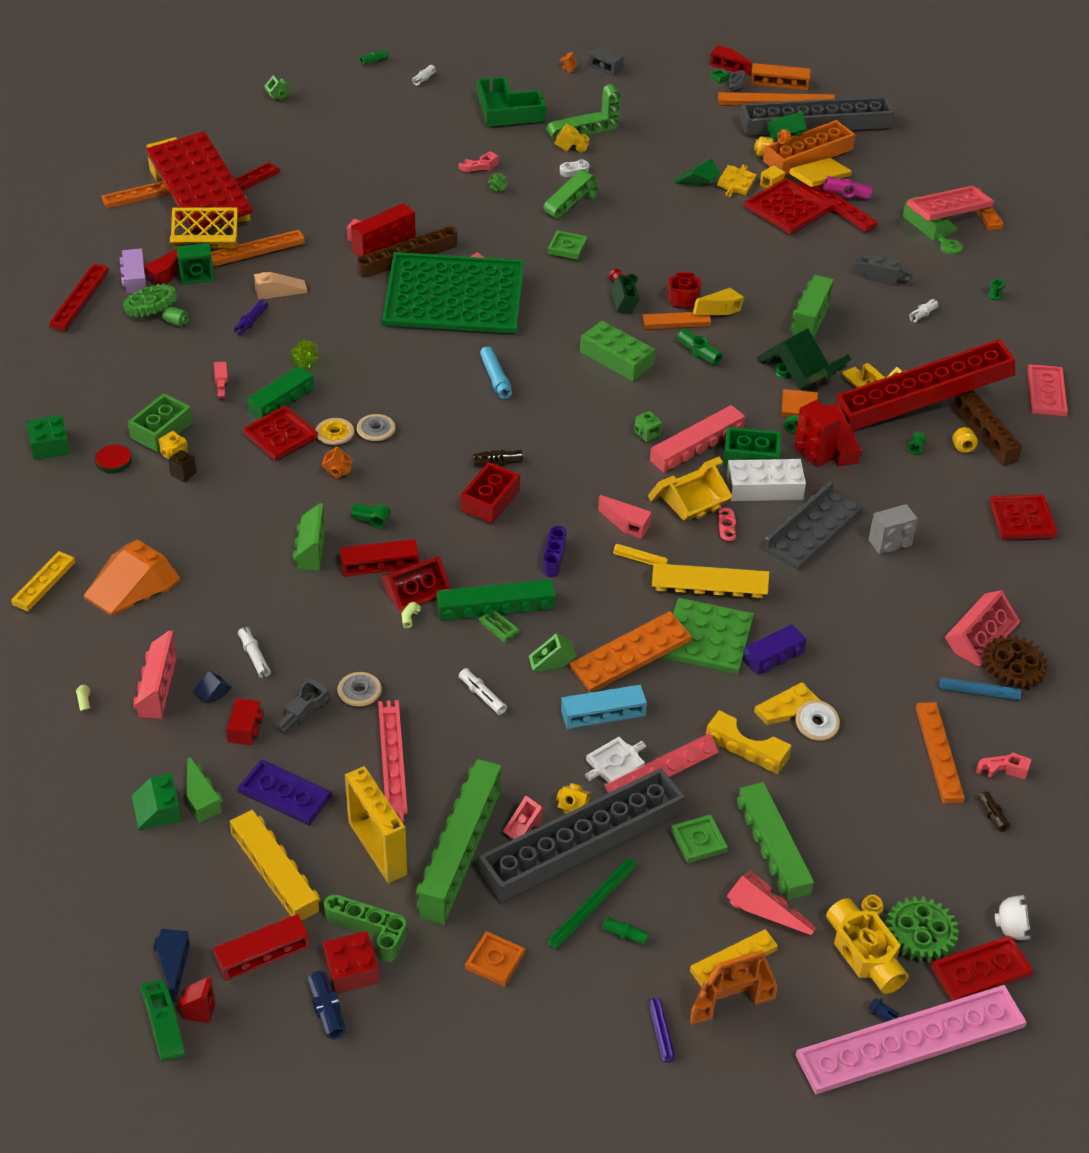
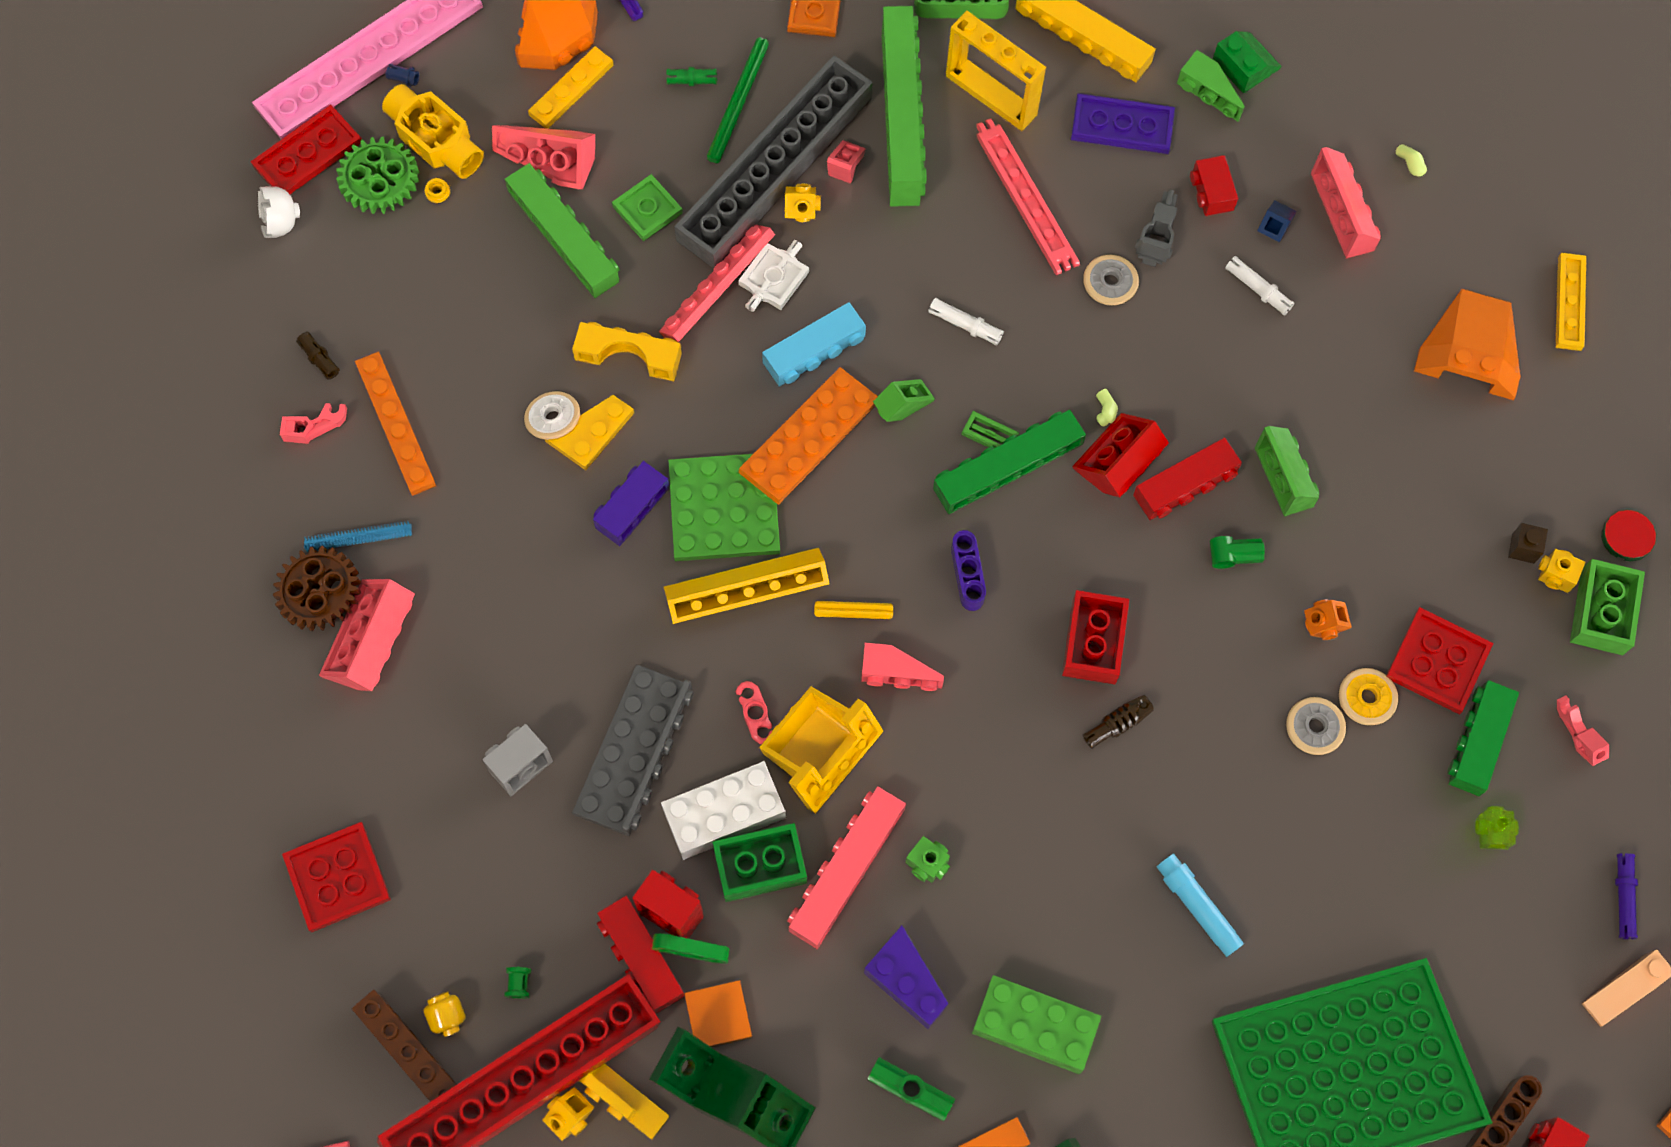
camera: 160 degrees right, 25 degrees up
(684, 385) = (906, 979): none -> dark purple wedge

